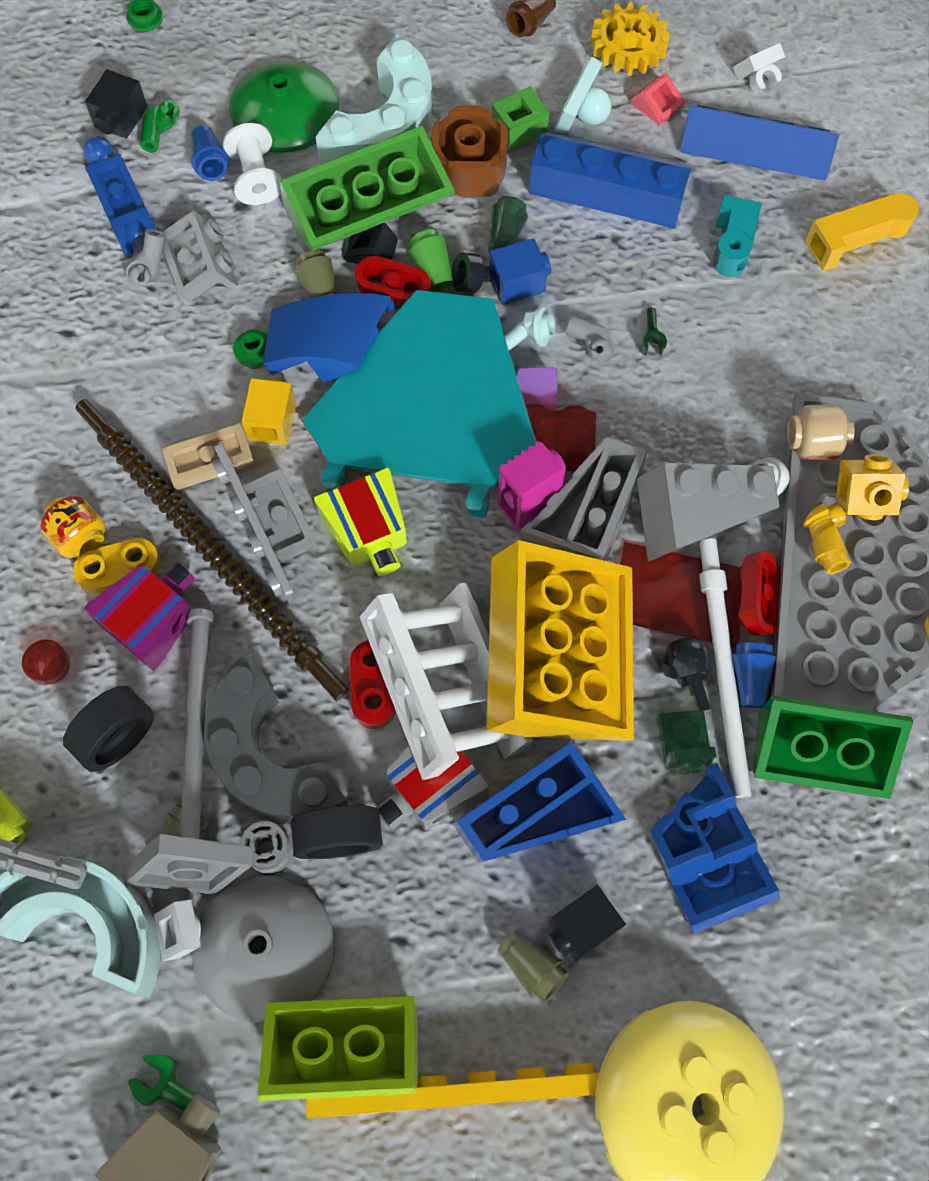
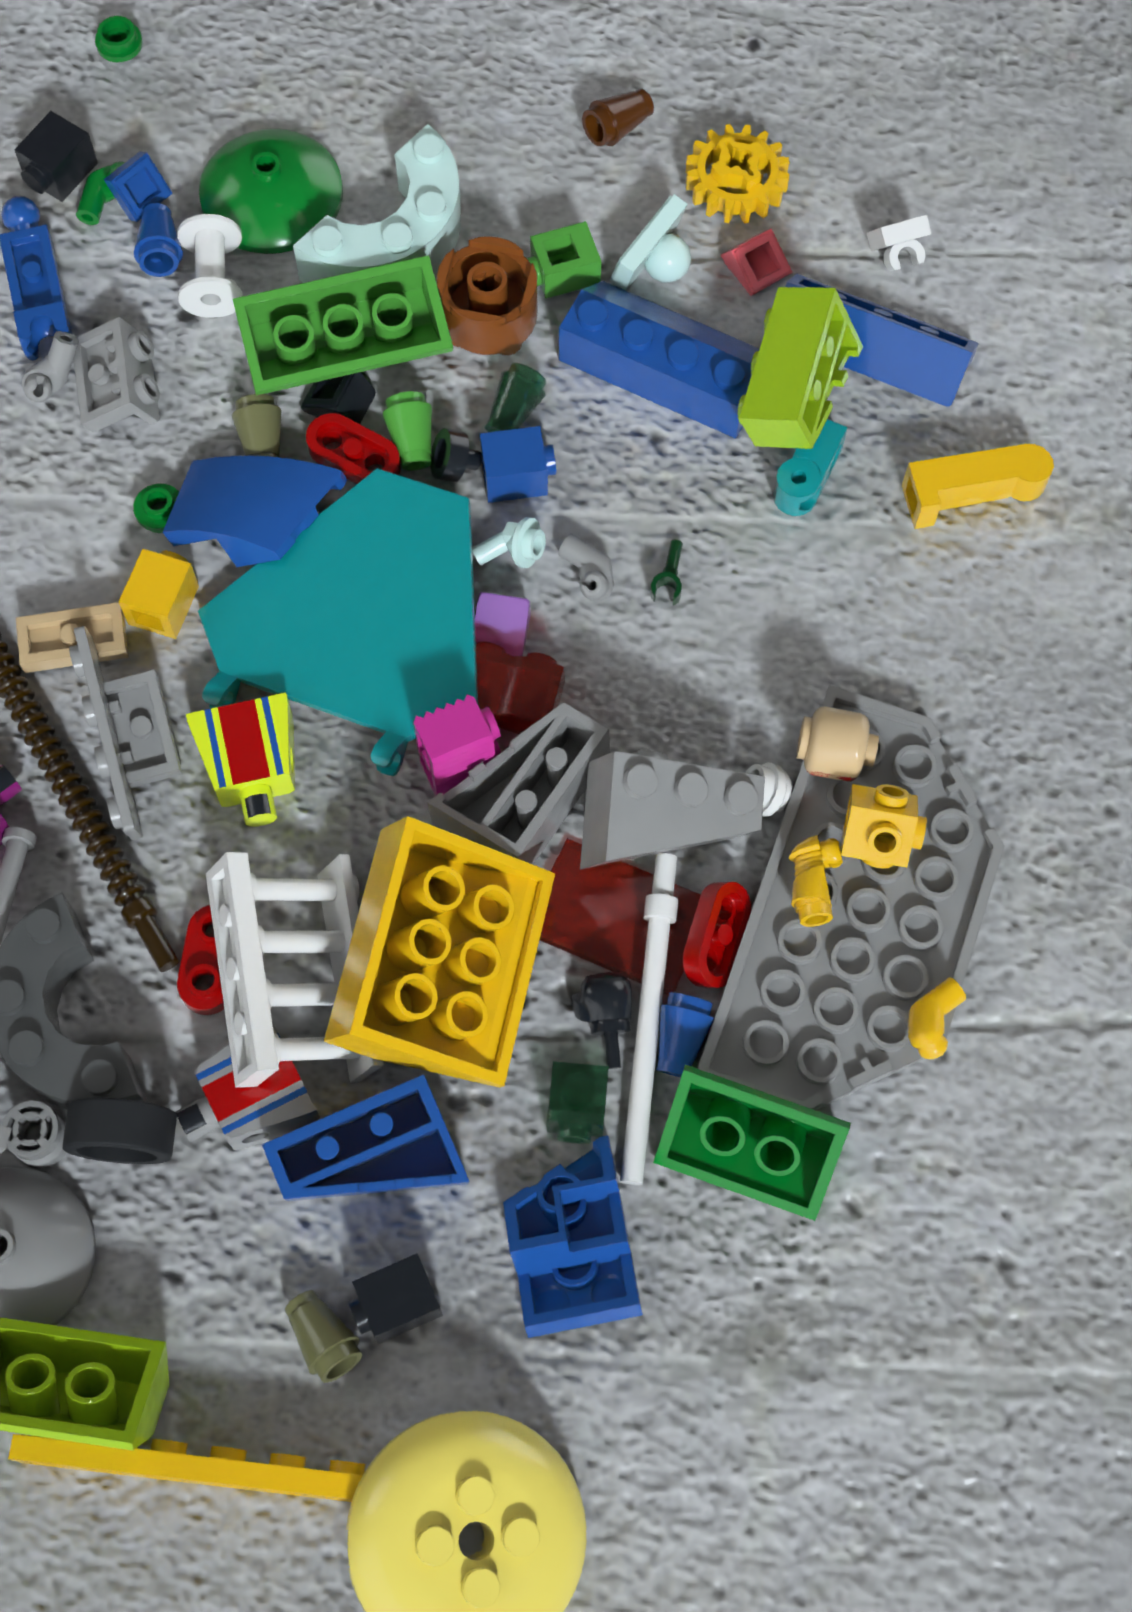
camera: 10 degrees right, 0 degrees up
(183, 115) = (137, 185): none -> blue tile
(718, 161) = (797, 367): none -> lime wedge

